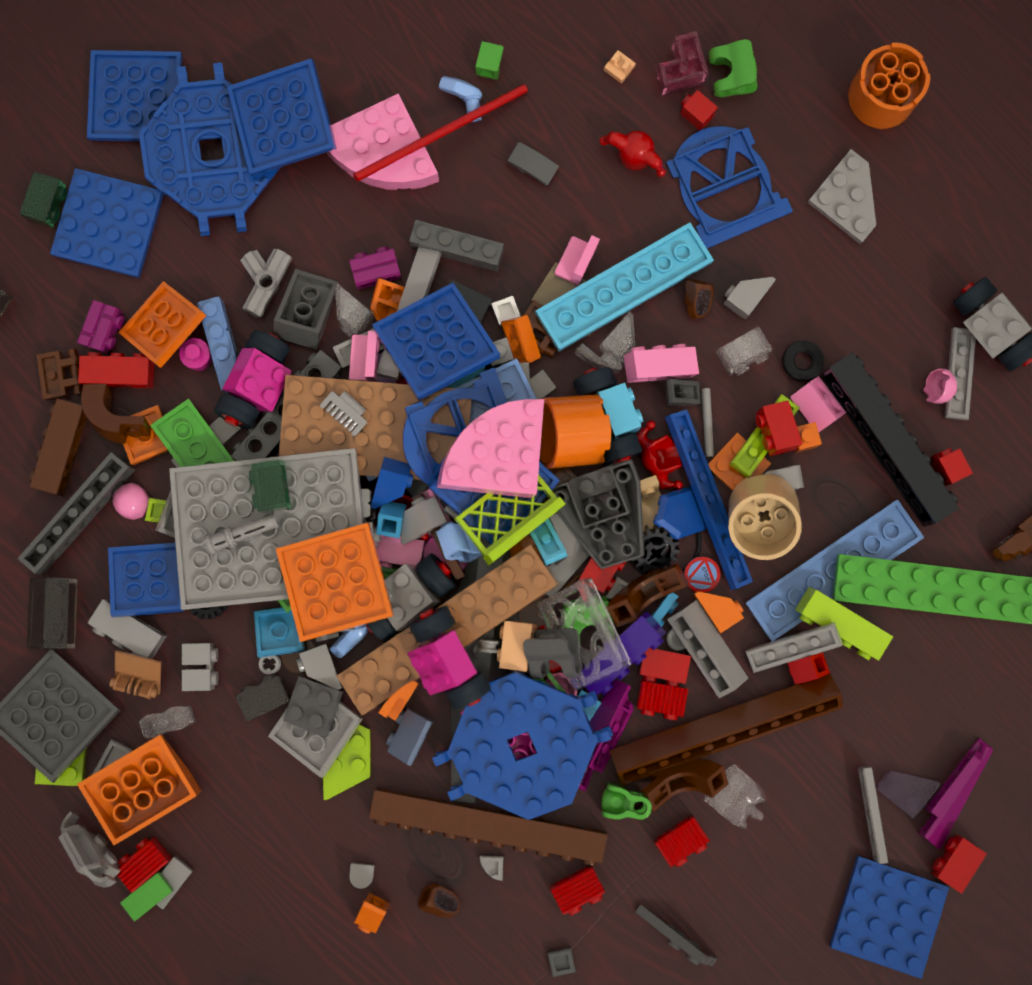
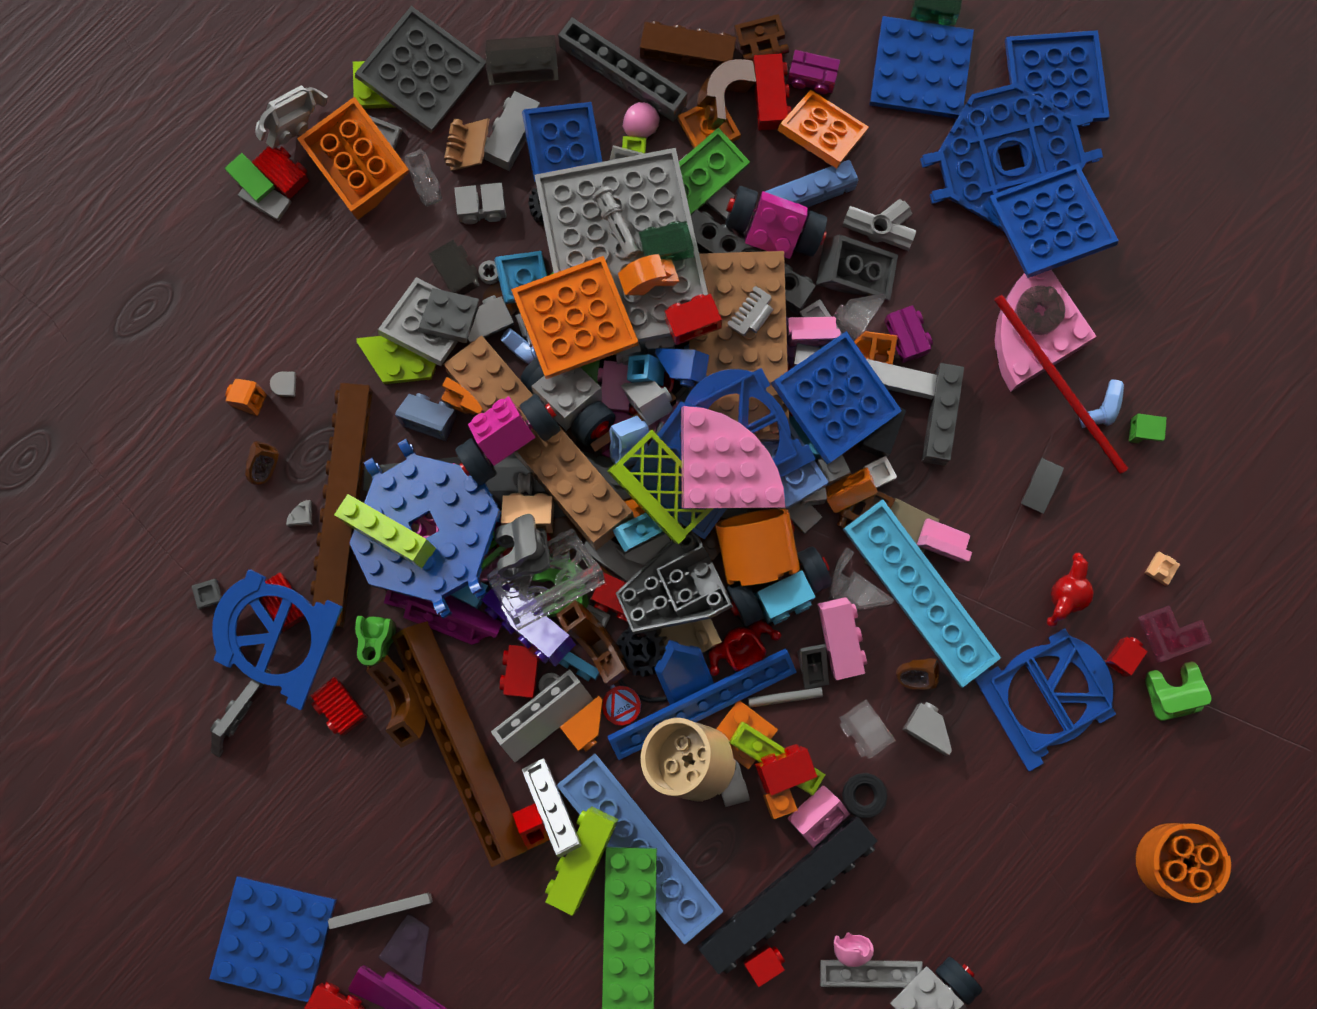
camera: 80 degrees right, 5 degrees down
(195, 354) = (796, 164): dark pink piece -> none
(300, 507) = (647, 273): none -> orange brick
(349, 468) = (693, 318): none -> red brick
(364, 128) = (1047, 298): none -> clear smoke plate
(525, 784) = (385, 531): none -> lime brick
(566, 920) = (247, 591): none -> blue window
(662, 699) = (485, 672): red brick -> none
(738, 798) = (388, 763): clear plate -> none
(848, 197) = (1053, 831): light grey plate -> none

